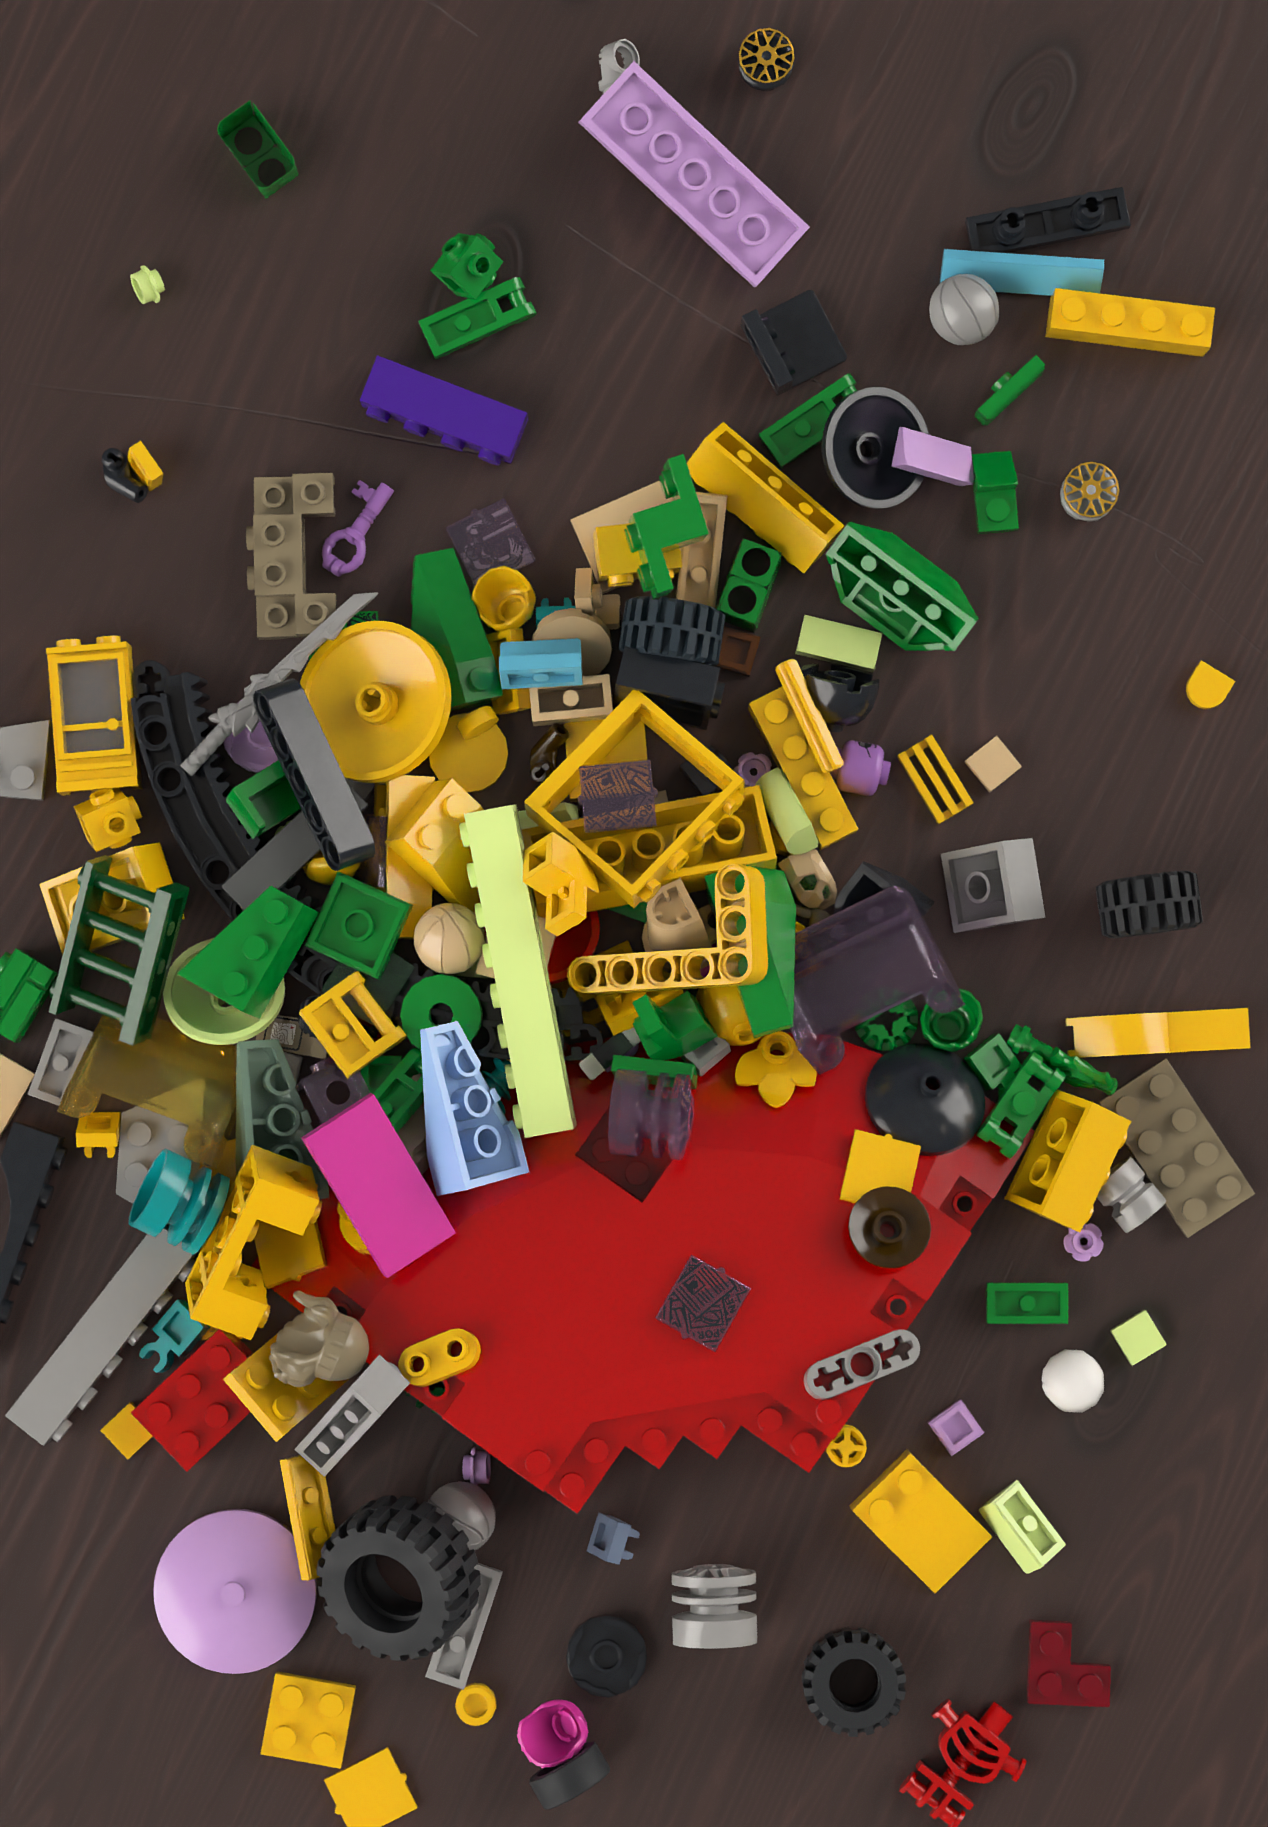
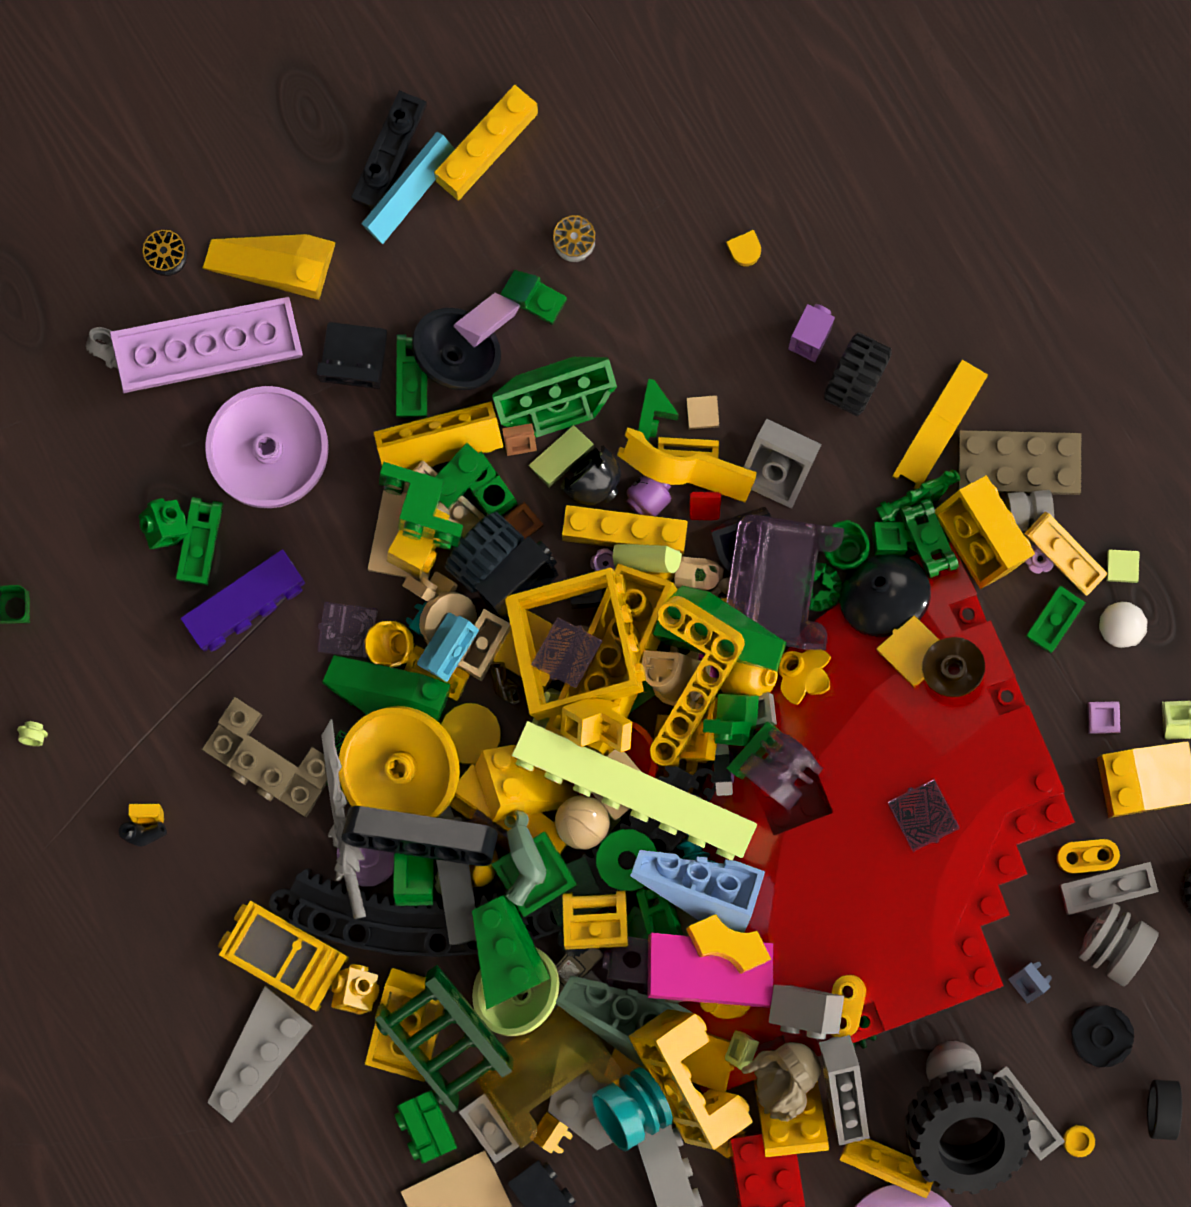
camera: 55 degrees left, 5 degrees down
(177, 1335) = (713, 1170): teal plate -> none
(320, 1276) = (741, 1049): none -> yellowish green tile
(355, 534) = (282, 711): medium lavender piece -> none
(366, 902) = (525, 857): none -> sand green arm
(404, 1317) = (806, 1010): none -> light grey brick
(423, 1203) = (739, 948): none -> yellow tile
(477, 722) = (456, 713): yellow tile -> none
(477, 1467) = (927, 1036): lavender plate -> none
(552, 1733) = (1130, 1102): dark pink hair -> none
(627, 318) = (267, 447): none -> lavender dish
(737, 547) = (461, 474): none -> green plate
(771, 1556) = (1108, 888): none -> light grey plate
(790, 1510) = (1087, 856): none -> yellow plate
(809, 716) = (596, 502): yellow axle -> none
(824, 585) = (519, 439): none -> nougat tile
(844, 192) = (281, 262): none -> yellow wedge
(847, 1452) = (1074, 790): yellow wheel -> none
(885, 1343) = (1016, 761): light grey beam -> none
(890, 836) = (704, 505): none -> red slope
(923, 801) = (697, 469): none -> yellow piece
(963, 704) = (655, 405): none -> green slope
(964, 309) = (407, 236): light grey piece -> none
(1008, 389) = (475, 244): green plate -> none
(1107, 1265) = (1065, 553): none -> yellow tile
(1162, 822) = (811, 332): none -> medium lavender brick

